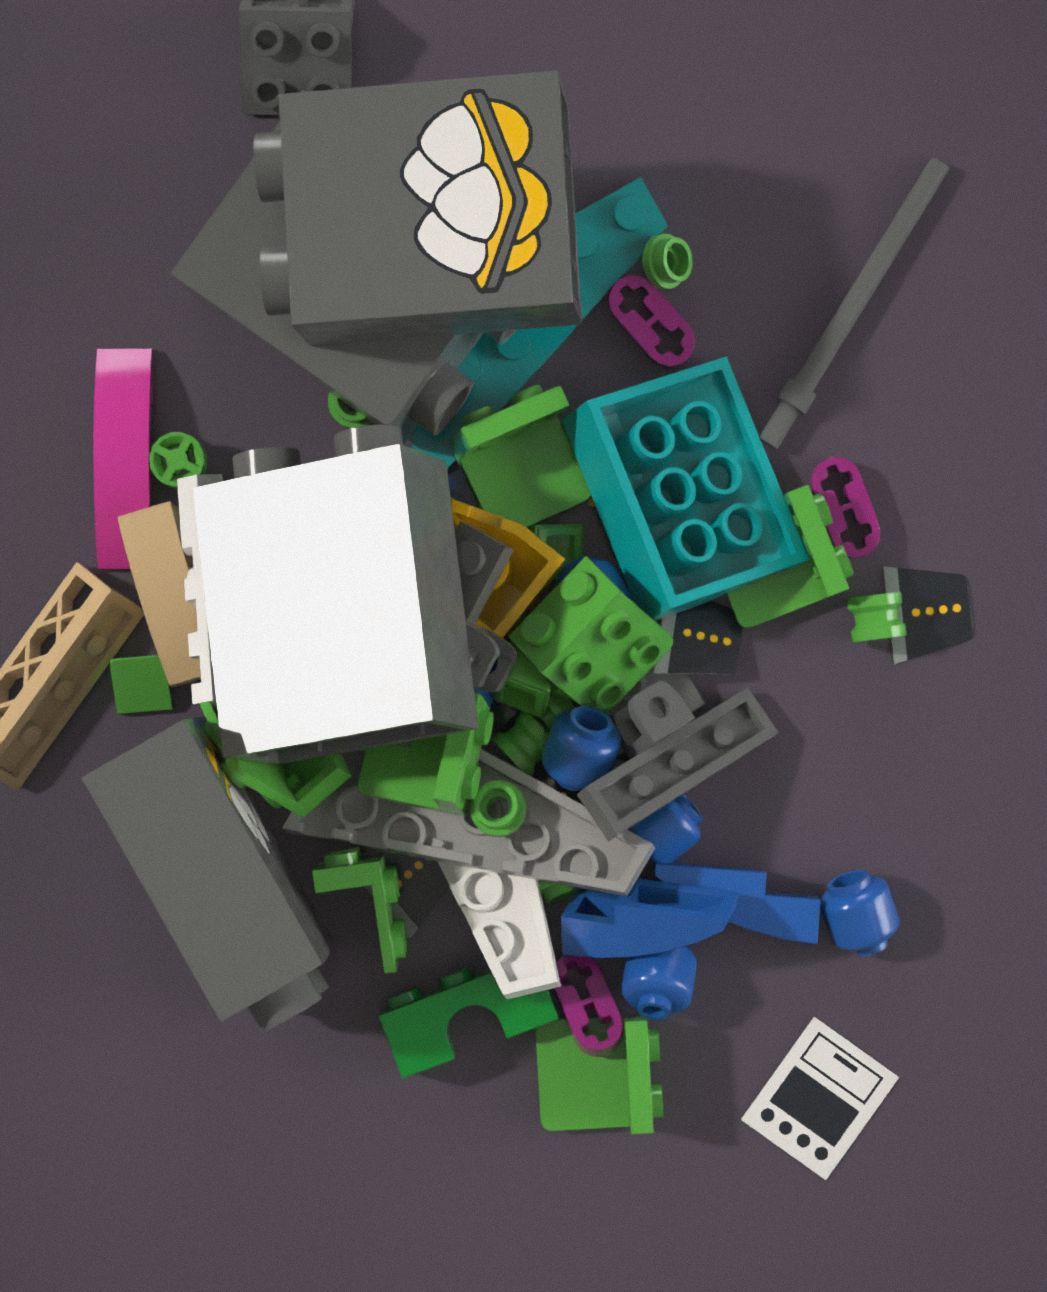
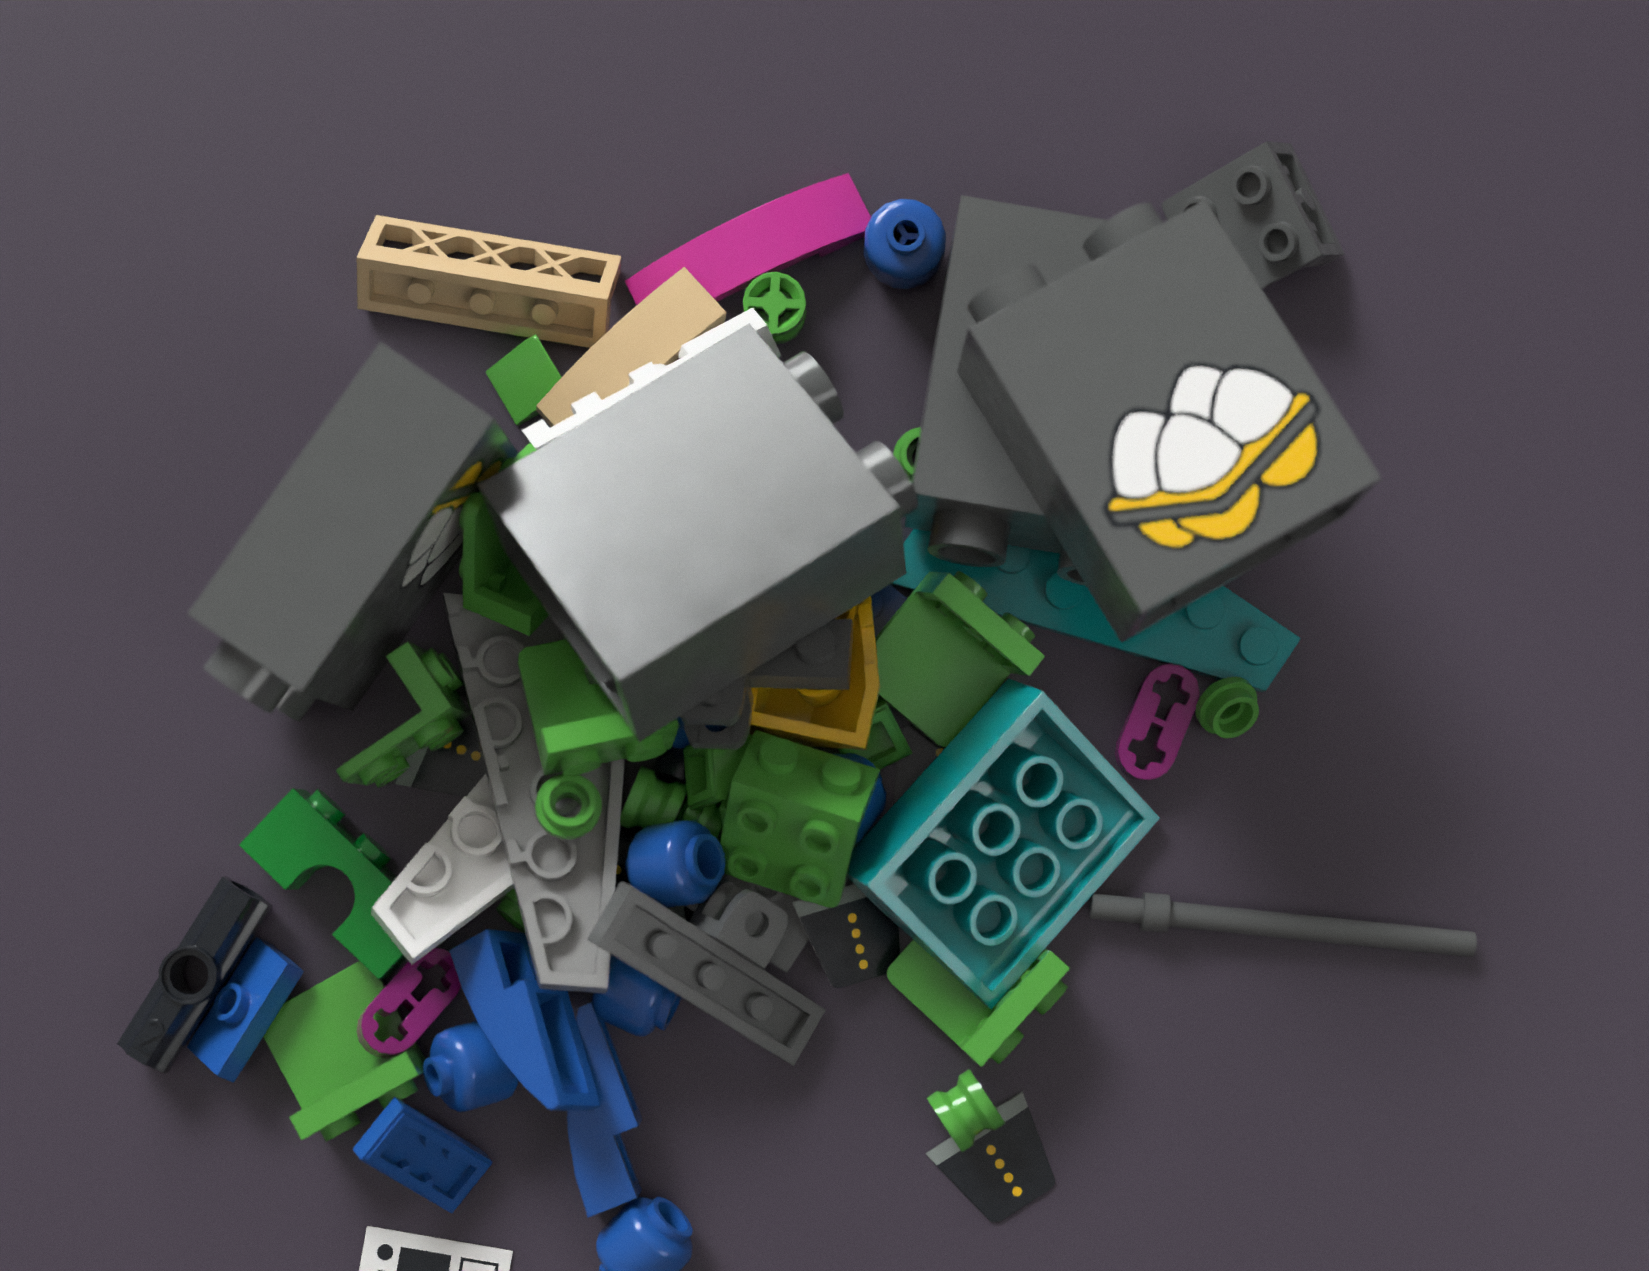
camera: 65 degrees right, 5 degrees down
(191, 348) = (899, 263): none -> blue head
(501, 1191) = (171, 1007): none -> black piece
(530, 1134) = (245, 1009): none -> blue plate
(709, 1048) = (422, 1155): none -> blue plate
(857, 501) = (1076, 1031): magenta beam -> none

